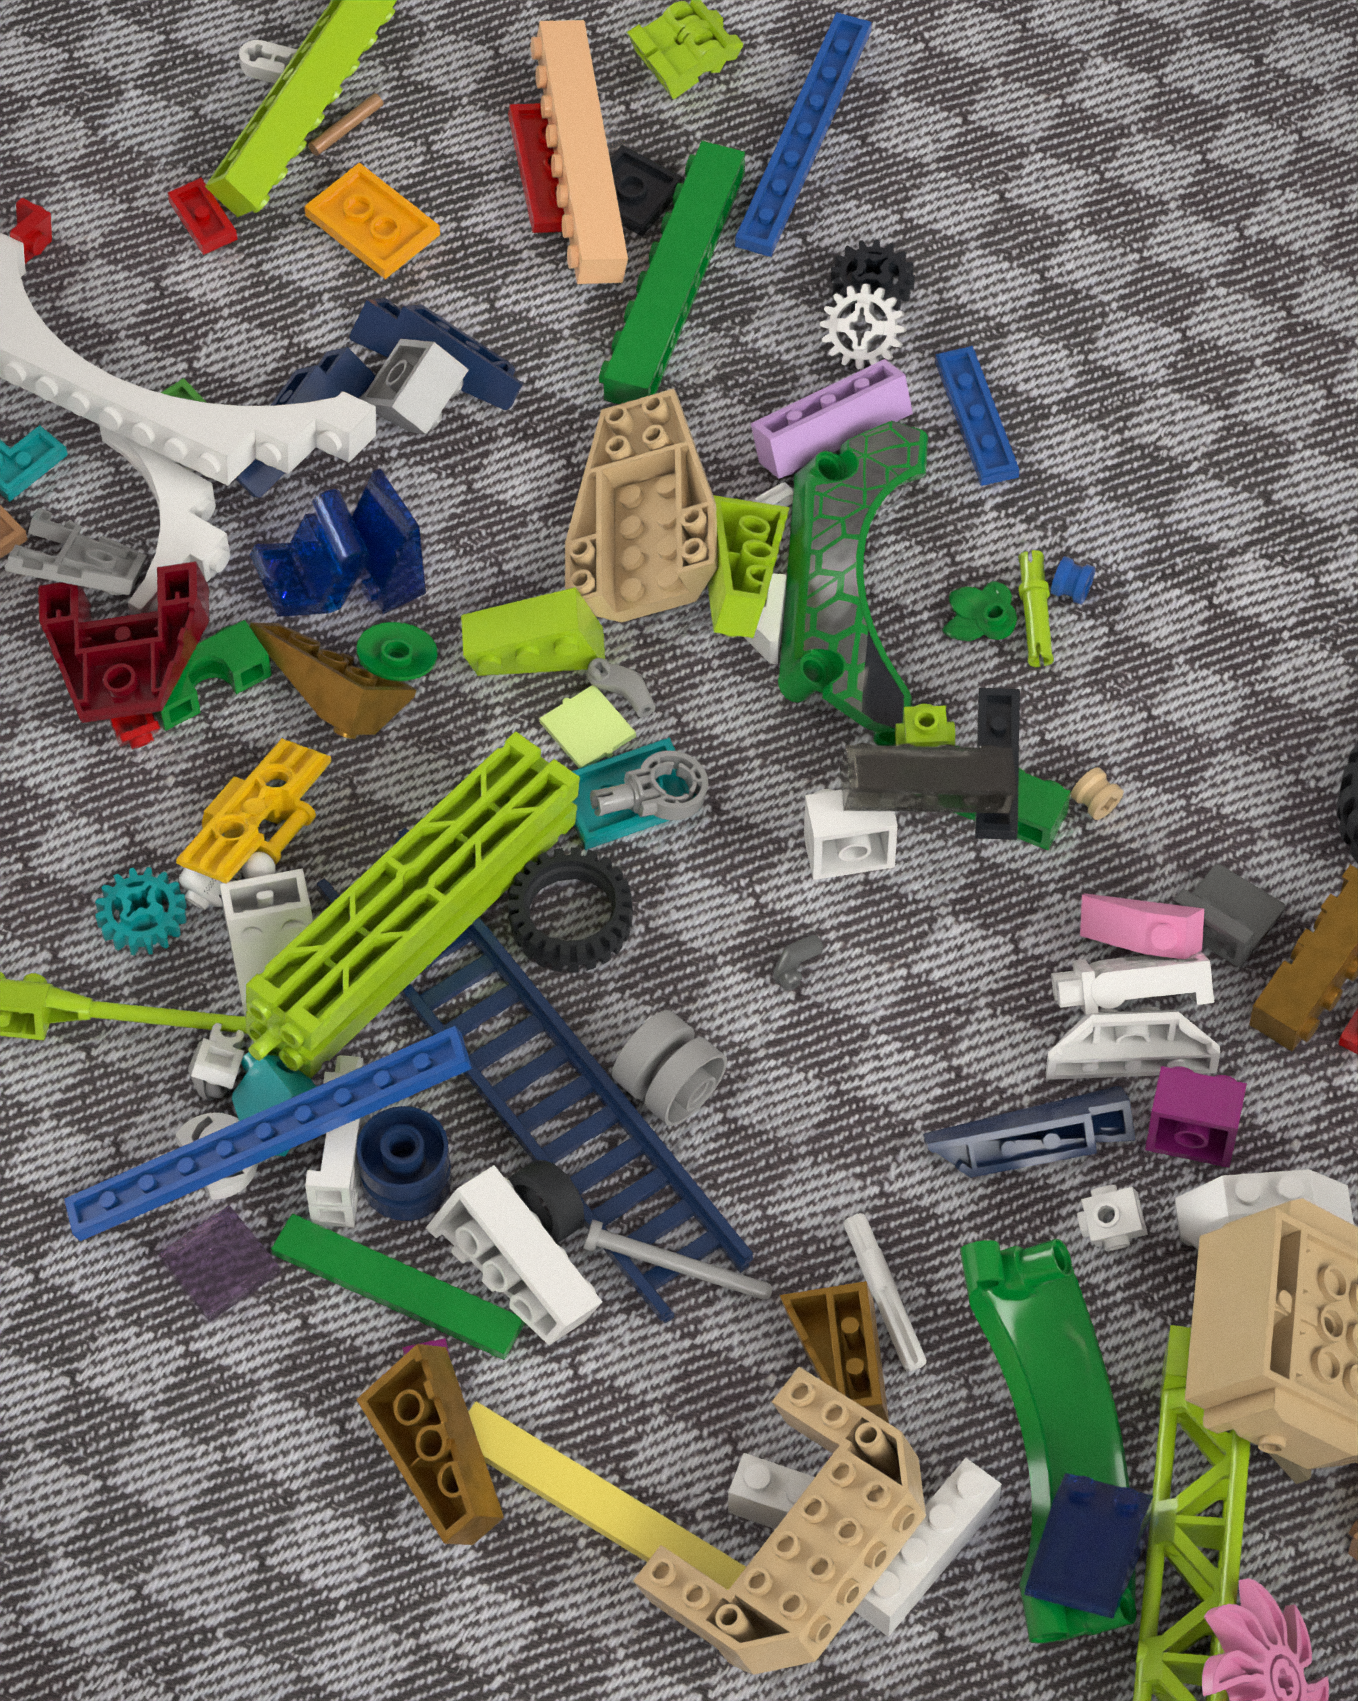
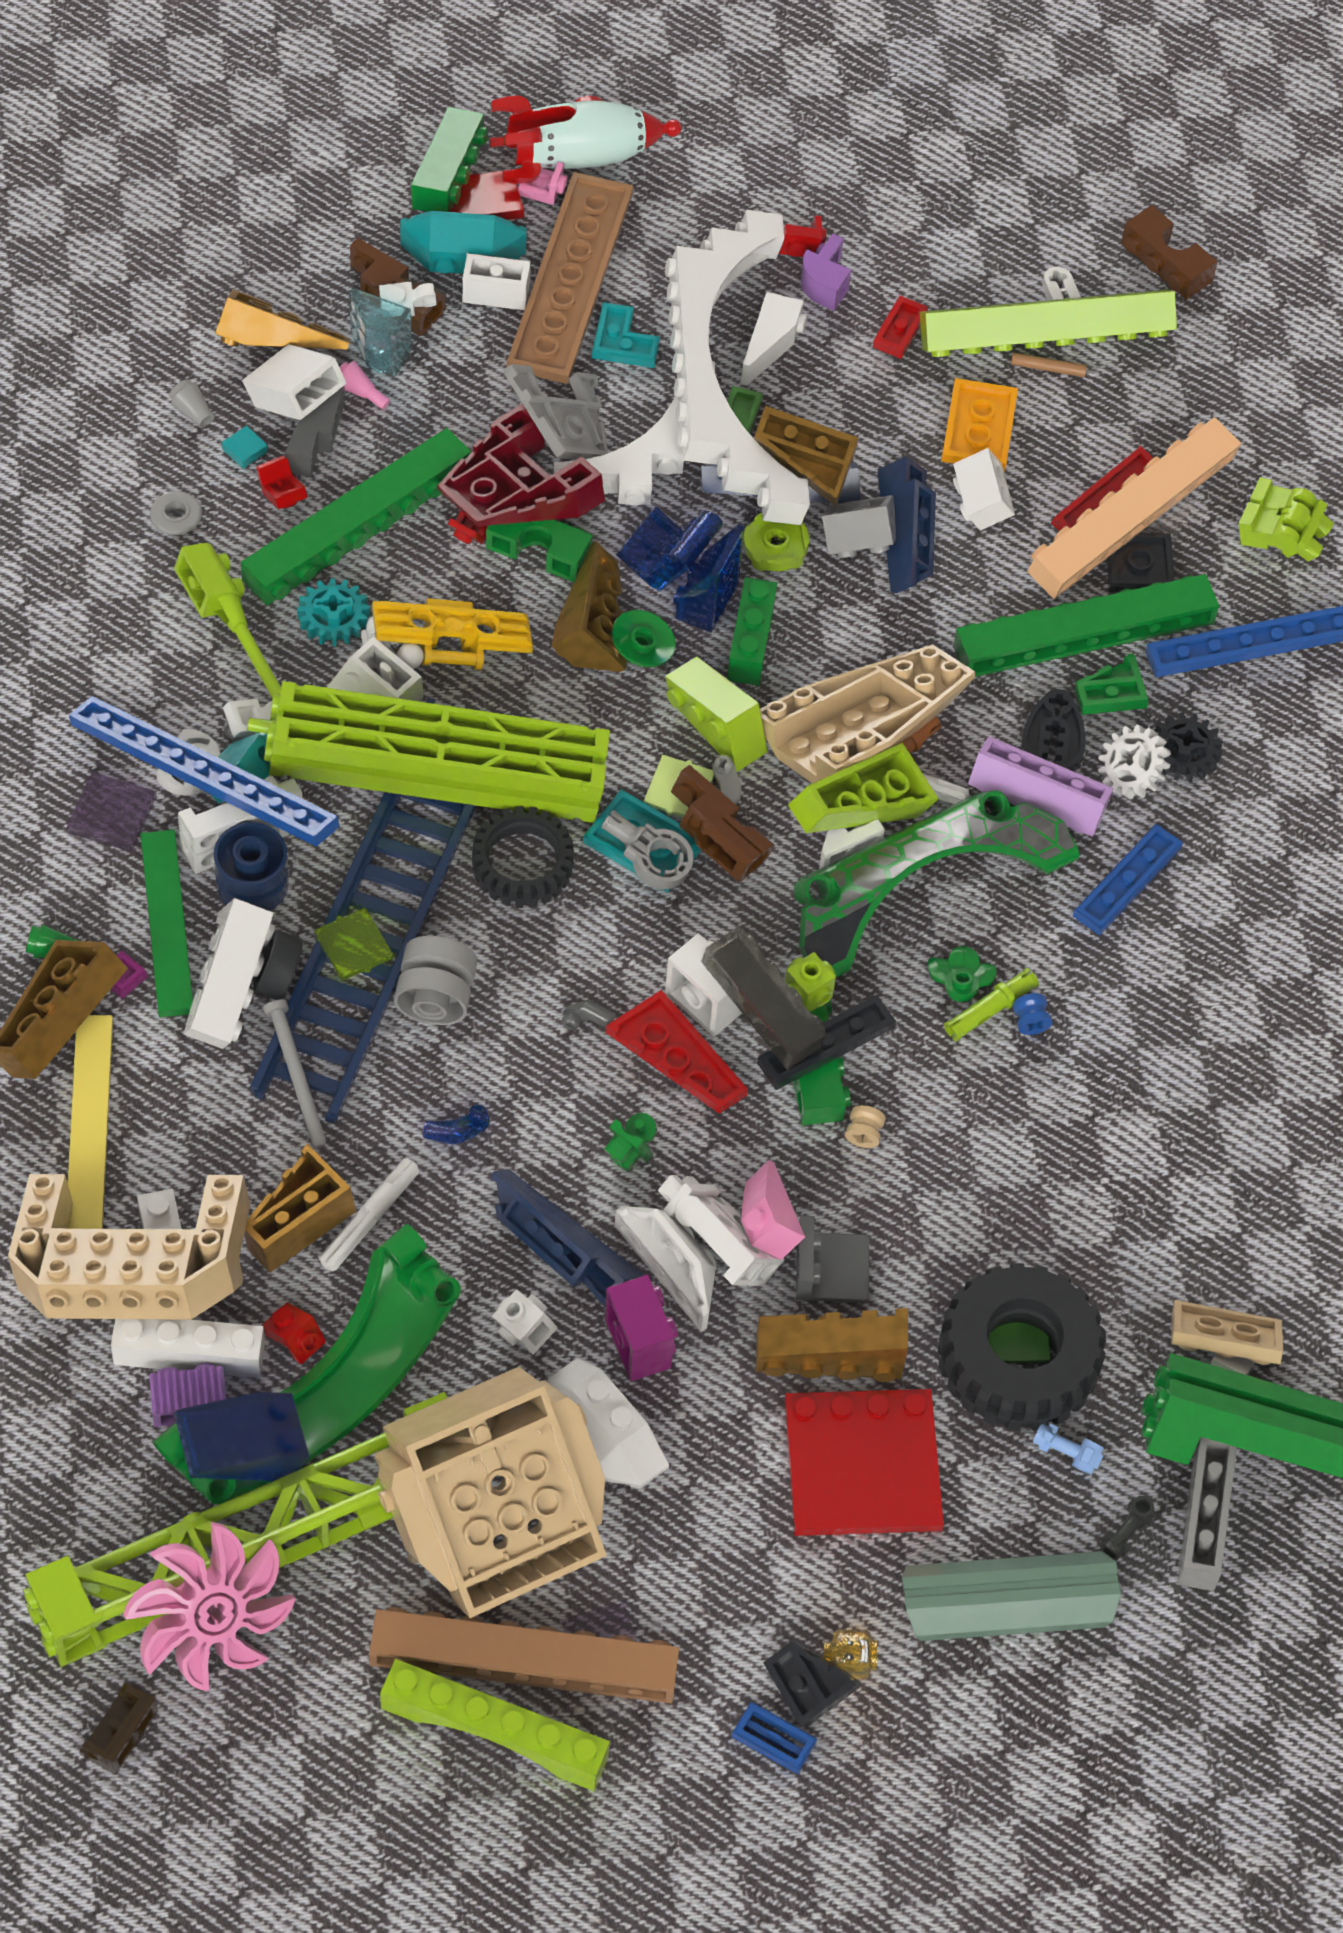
camera: 50 degrees right, 0 degrees up
(40, 823) = (352, 518): none -> green brick
(87, 245) = (823, 277): none -> medium lavender brick
(114, 319) = (773, 334): none -> white slope
(313, 368) = (808, 450): none -> pearl gold wedge
(340, 1414) = (42, 939): none -> green cone
(380, 453) = (775, 557): none -> lime plate
(455, 260) = (983, 489): none -> white brick
(485, 567) = (752, 631): none -> green arch
(564, 1121) = (353, 944): none -> clear neon green piece
(667, 718) = (716, 830): none -> reddish brown plate
(761, 296) = (1112, 689): none -> green wing
(770, 358) = (1069, 727): none -> black piece
(844, 1154) = (460, 1129): none -> clear blue arm
(890, 905) = (675, 1048): none -> red wing
(973, 1437) = (295, 1331): none -> red bracket
(978, 1001) = (630, 1142): none -> green hips
(983, 1580) = (184, 1389): none -> medium lavender brick

